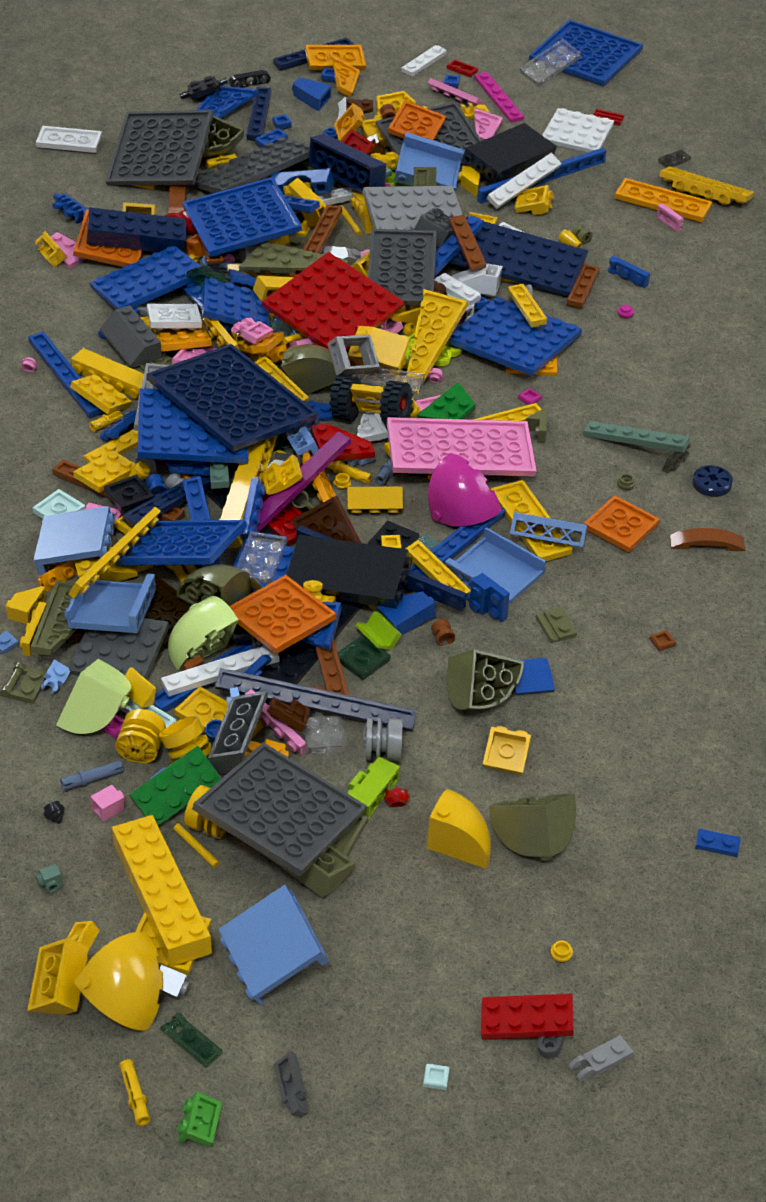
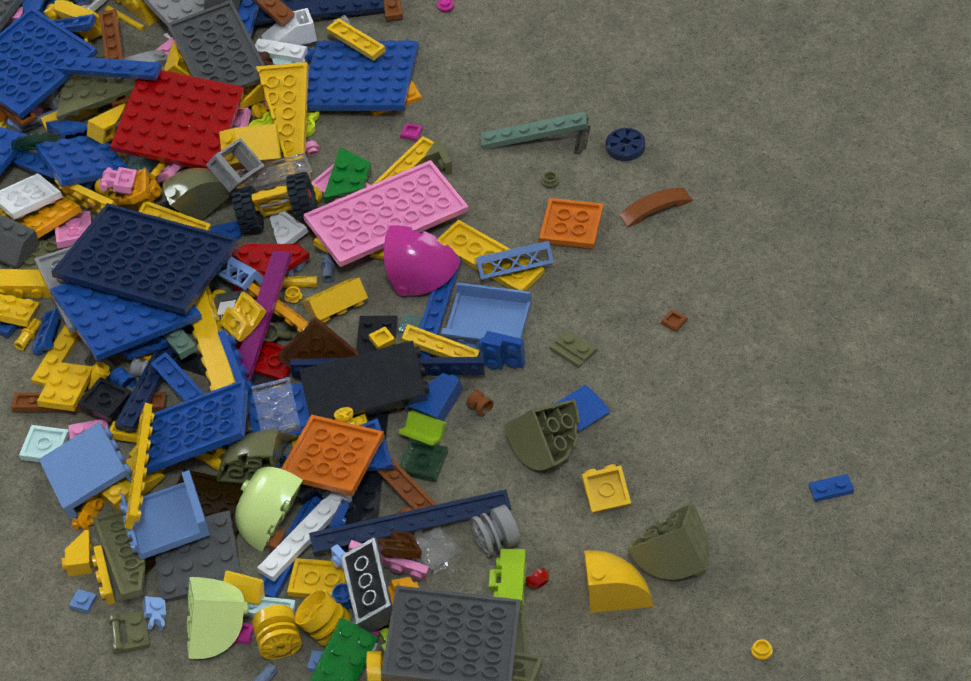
camera: 20 degrees left, 5 degrees up
(302, 243) = (111, 68): none -> blue plate

